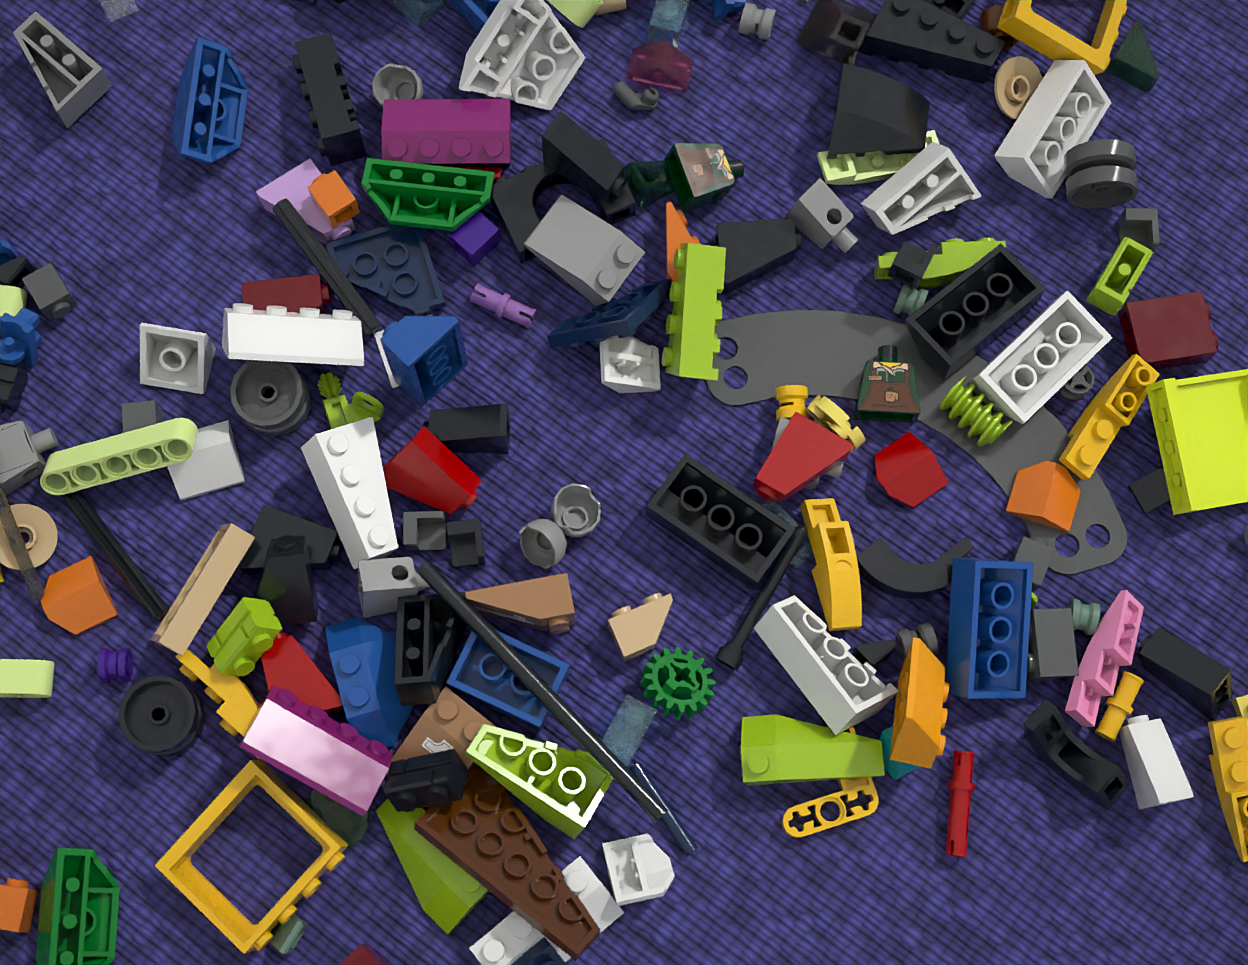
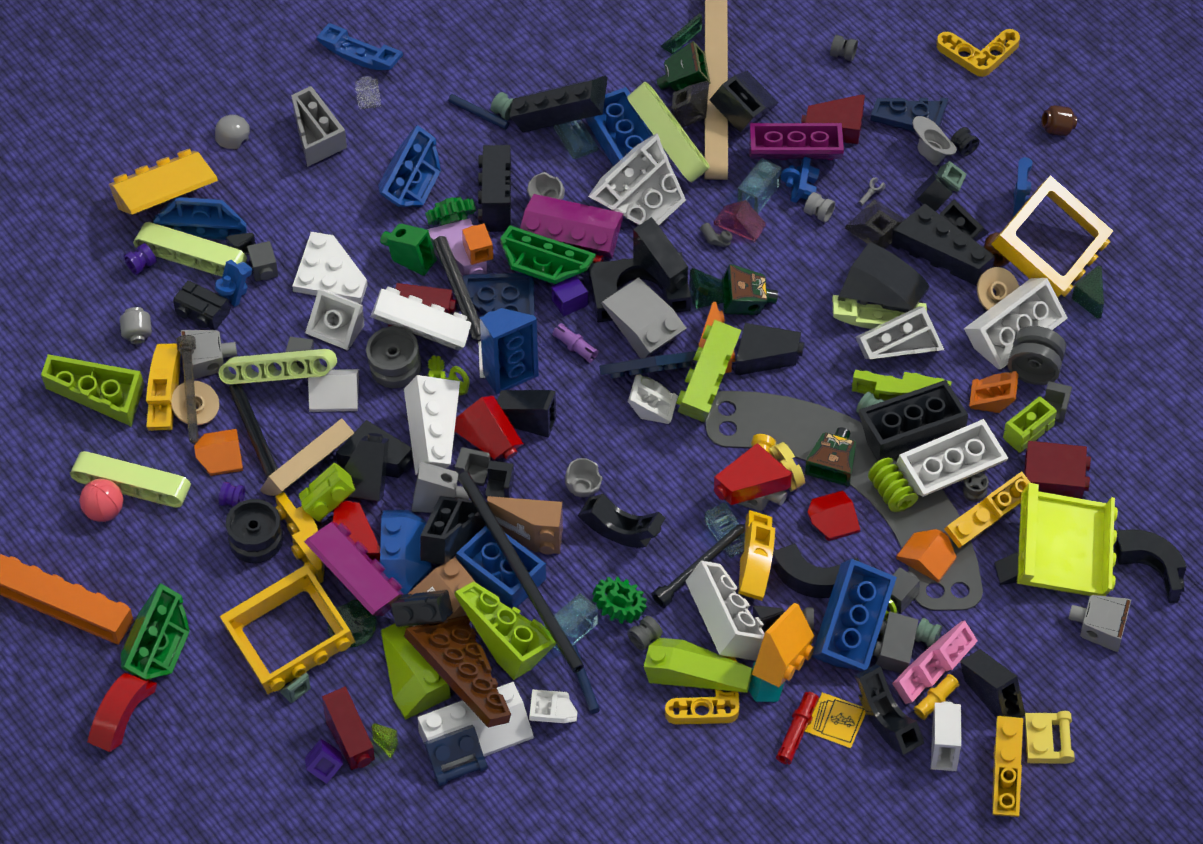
camera: 20 degrees right, 20 degrees down
(143, 280) = (329, 268): none -> white plate
(243, 221) = (410, 247): none -> green torso
(281, 155) = (450, 211): none -> green gear
(543, 543) = (553, 488): light grey hair -> none
(639, 628) = (606, 560): tan slope -> none
(646, 567) = (619, 525): none -> black arch
(719, 521) = (690, 511): black slope -> none
(724, 720) = (644, 633): none -> dark grey wheel
(823, 217) = (823, 336): light grey torso -> none
(911, 264) = (875, 378): black panel -> none
(1002, 772) = (836, 720): none -> yellow sticker
(1057, 235) = (994, 392): none -> orange slope

